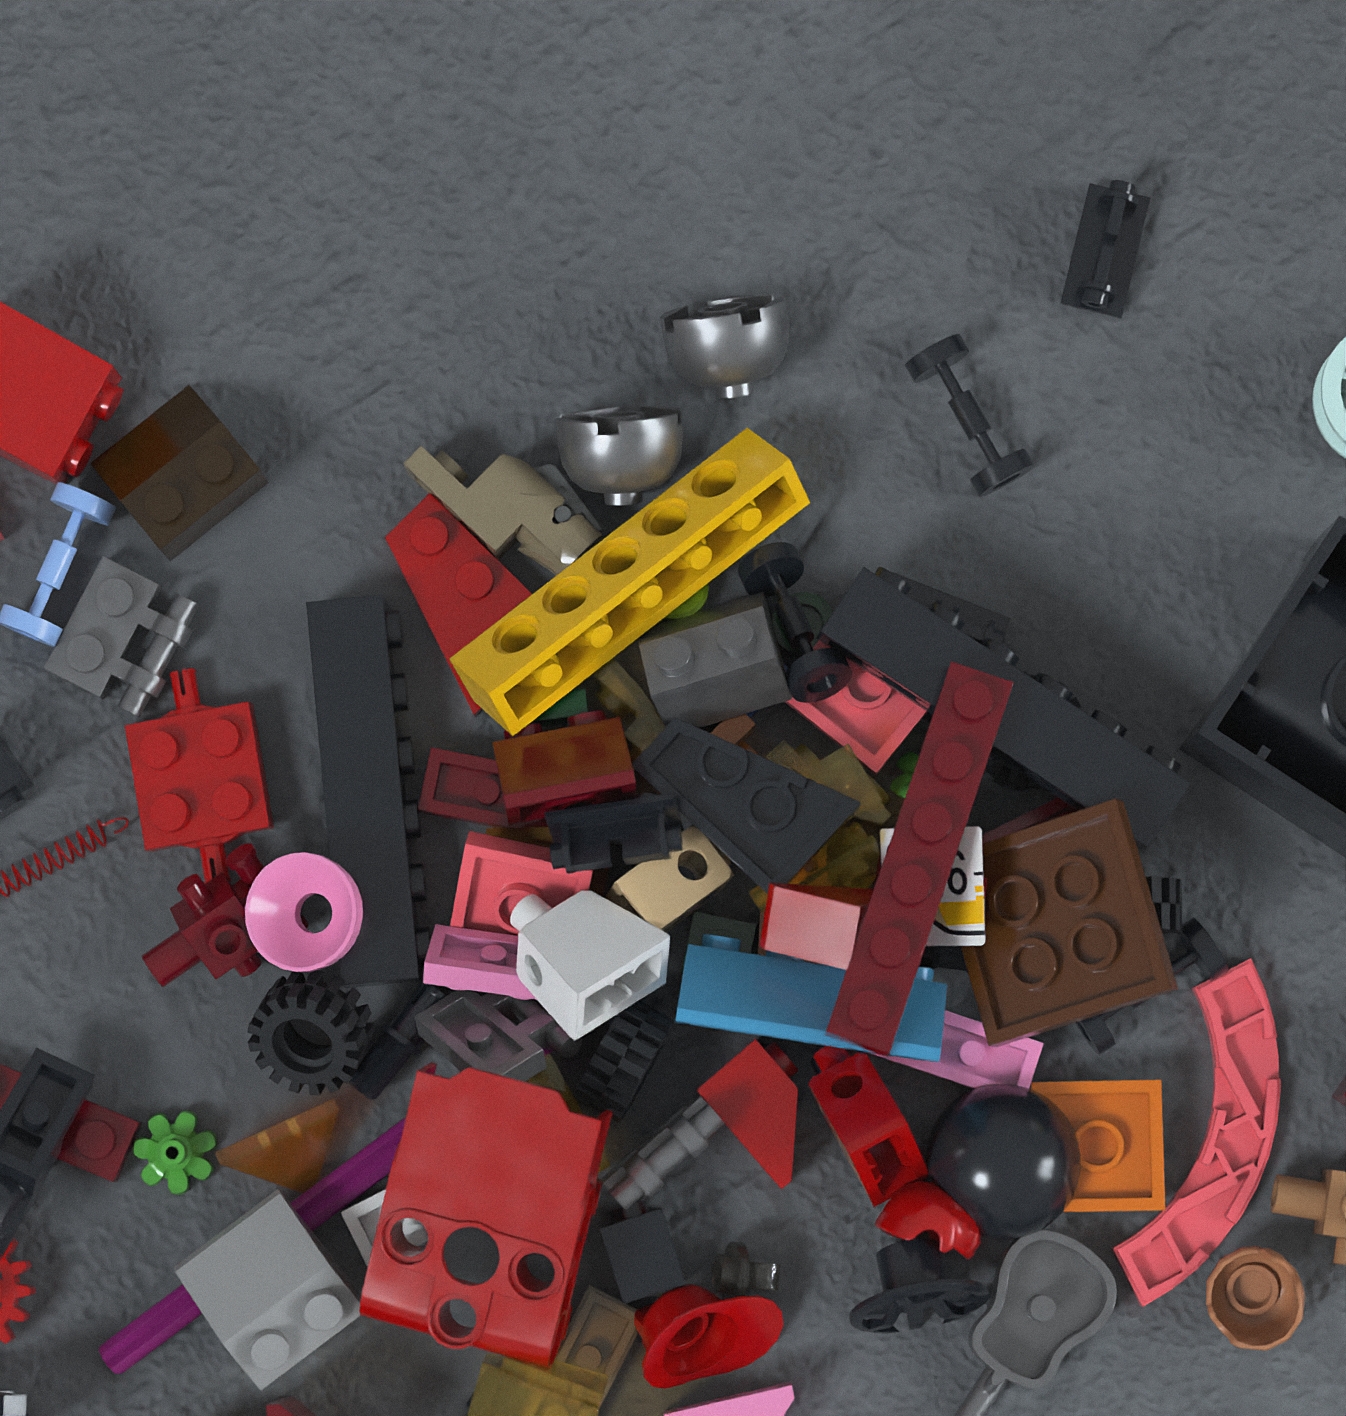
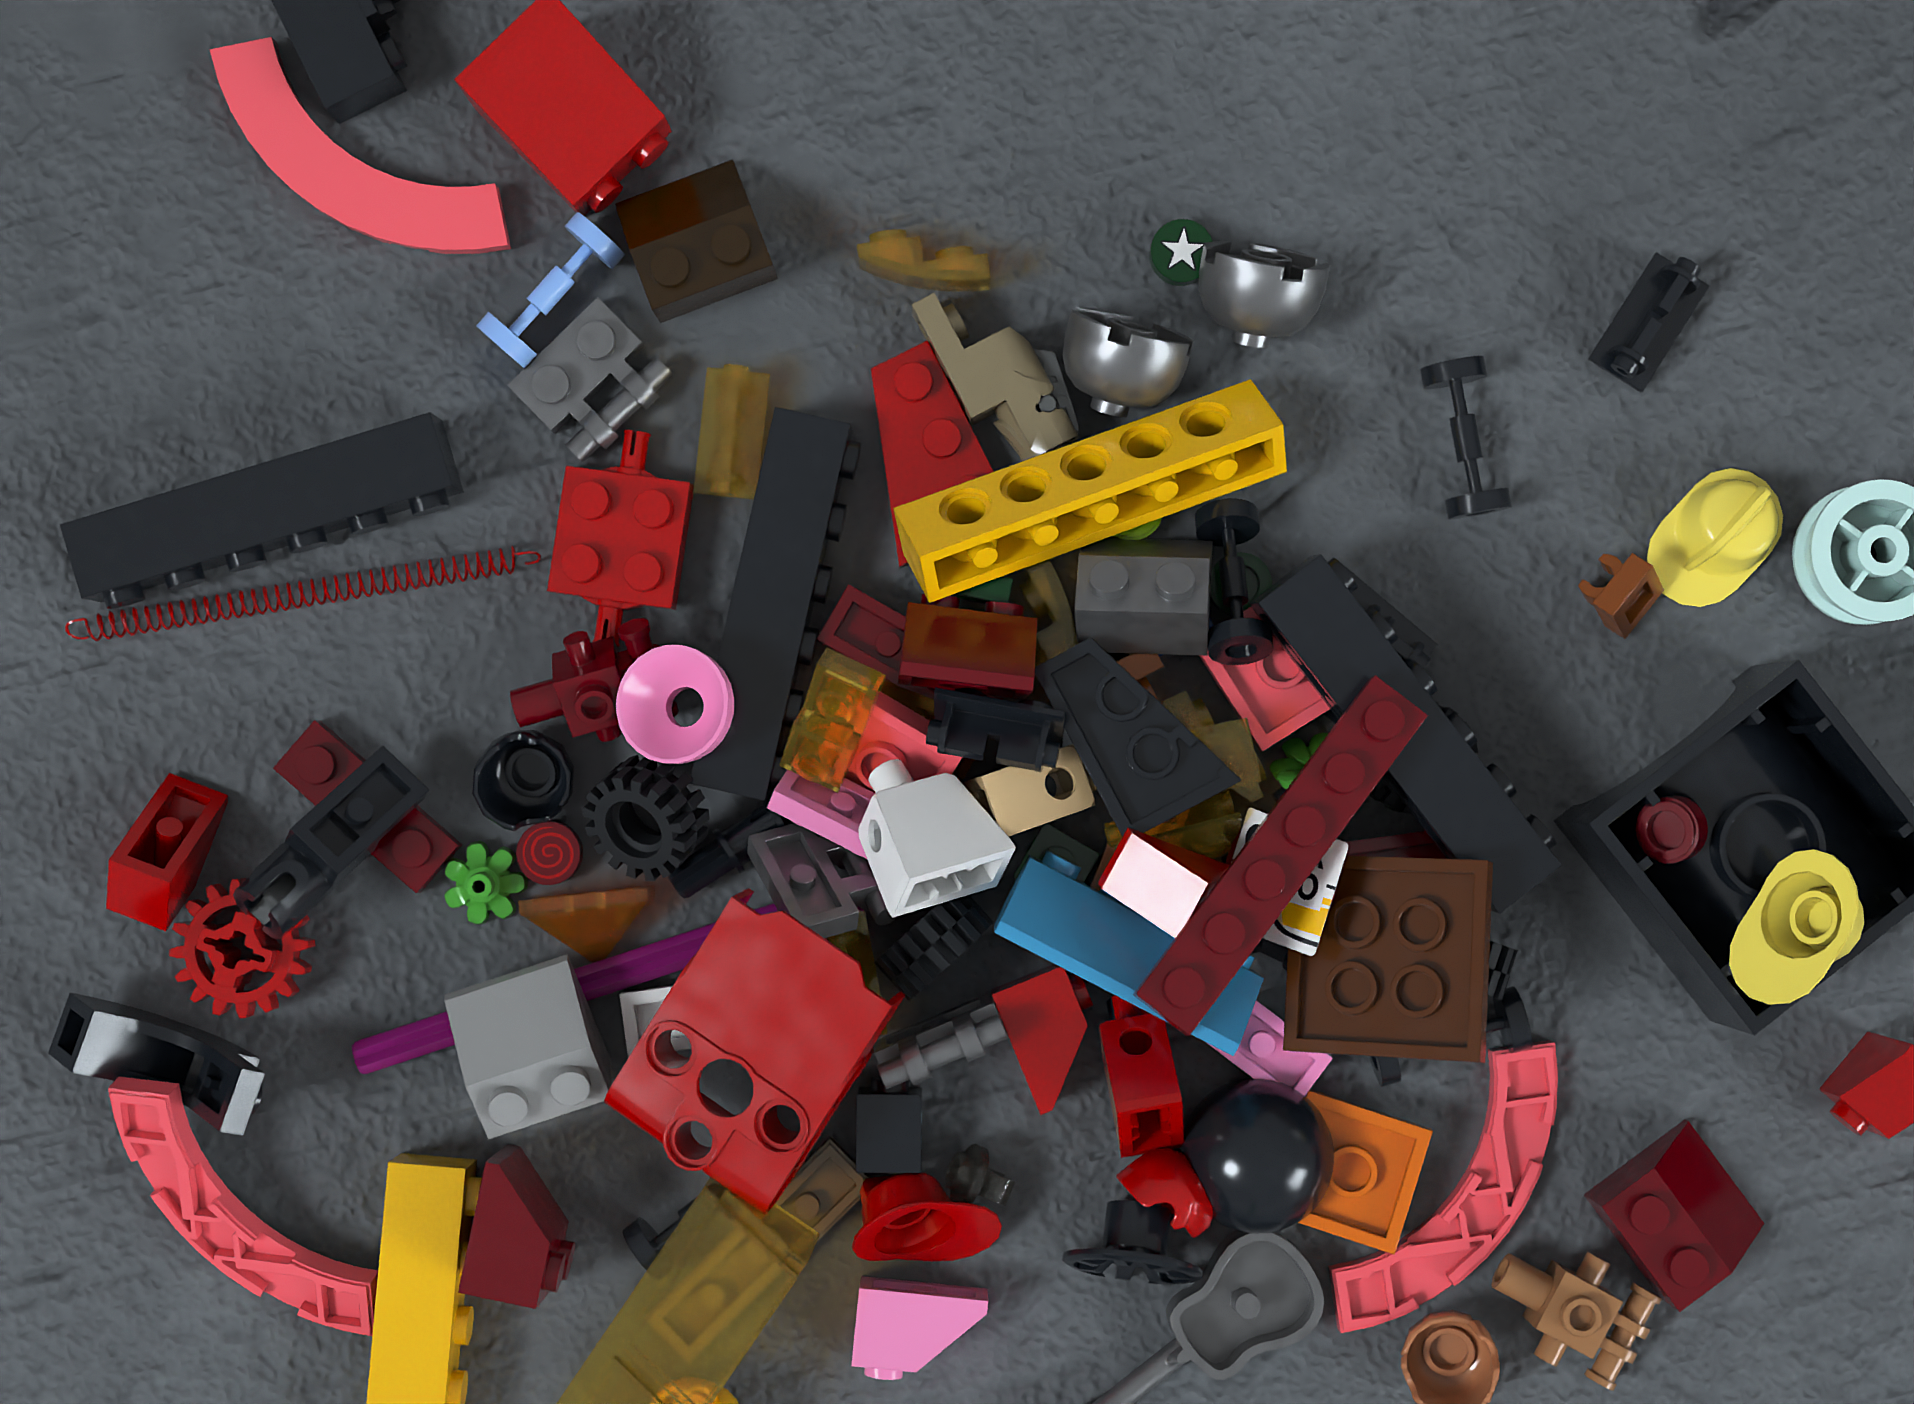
camera: 15 degrees right, 5 degrees up
(181, 1036) = (523, 779): none -> black hair
(229, 1100) = (549, 853): none -> dark red tile
(272, 641) = (731, 432): none -> clear yellow hinge
(379, 426) = (901, 261): none -> clear yellow slope
(457, 877) = (832, 720): none -> clear yellow slope
(639, 331) = (1178, 251): none -> dark green tile
(1171, 511) = (1627, 594): none -> dark orange tile
(1238, 431) = (1715, 537): none -> light yellow piece
(1280, 713) = (1672, 829): none -> dark red tile

